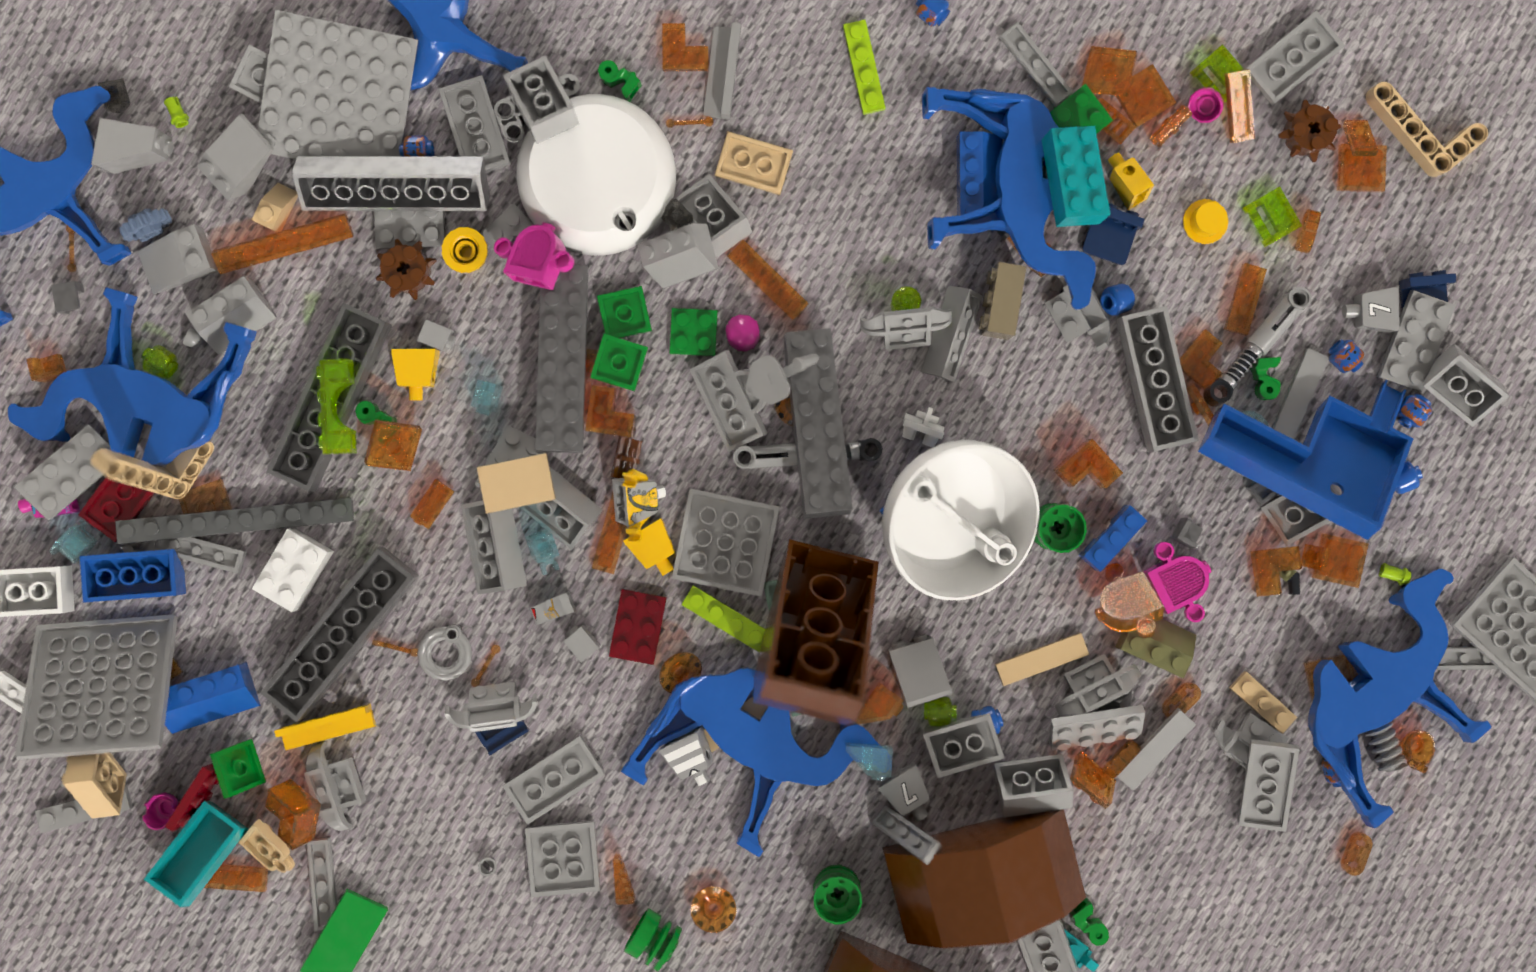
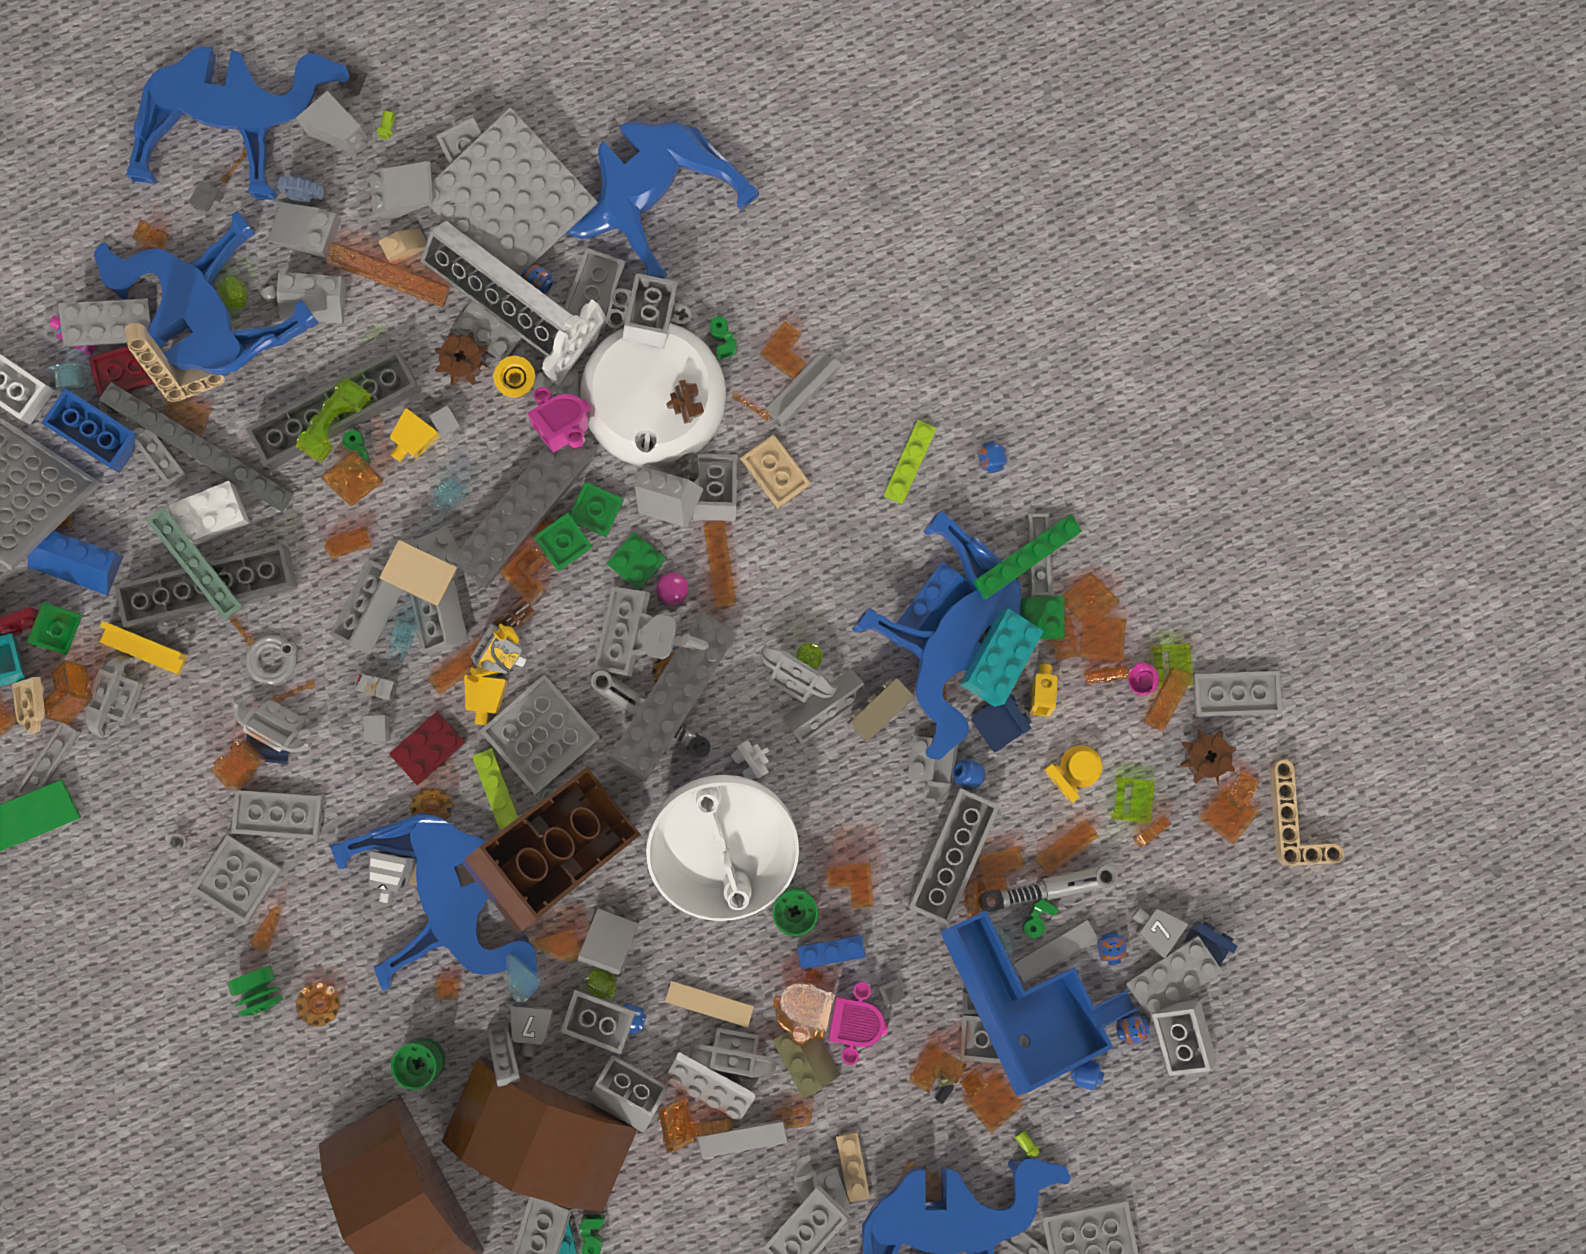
camera: 35 degrees right, 5 degrees down
(315, 621) = (194, 563): none -> sand green plate
(489, 764) = (238, 765): none -> clear orange brick
(493, 180) = (572, 343): none -> white plate
(633, 160) = (682, 403): none -> reddish brown hips
(811, 814) = (446, 988): none -> clear orange plate
(1029, 72) = (1027, 556): none -> green plate
(1209, 249) = (1068, 789): none -> yellow plate

